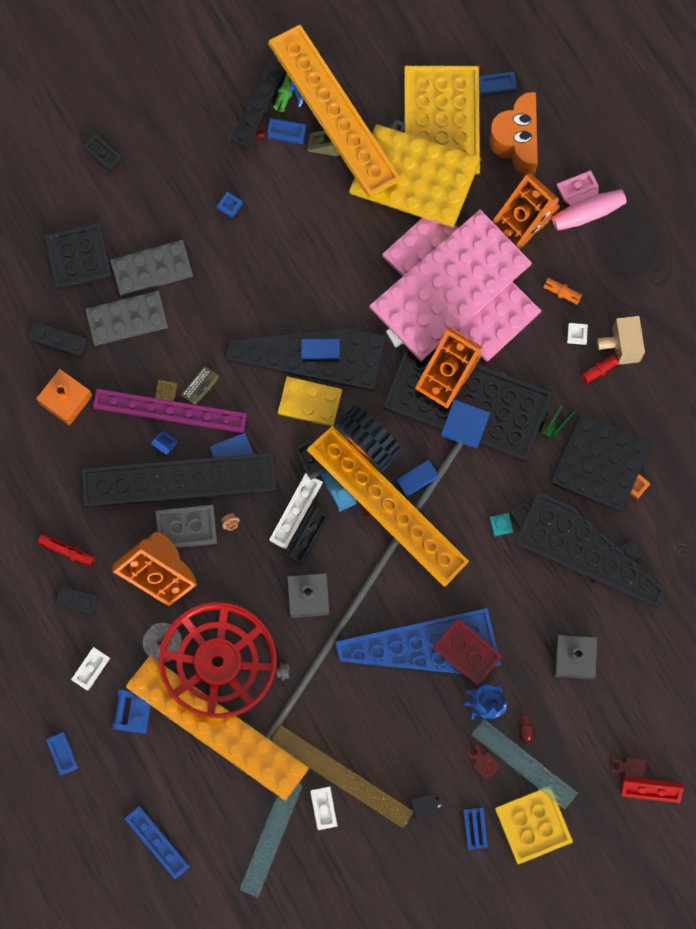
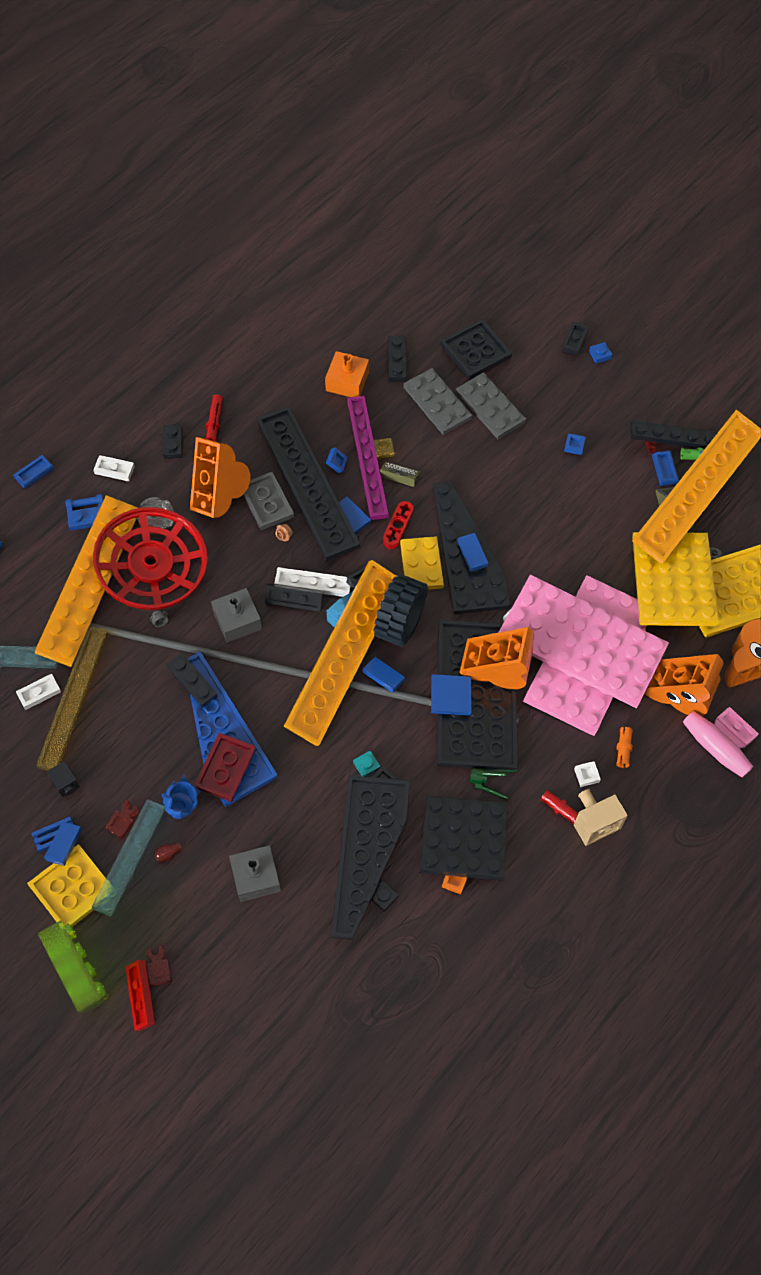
camera: 70 degrees right, 15 degrees down
(127, 134) = (600, 352): none -> blue plate
(259, 400) = (399, 532): none -> red beam
(365, 658) = (191, 680): none -> black plate
(491, 821) = (63, 843): none -> blue tile
(616, 839) = (71, 966): none -> clear neon green brick

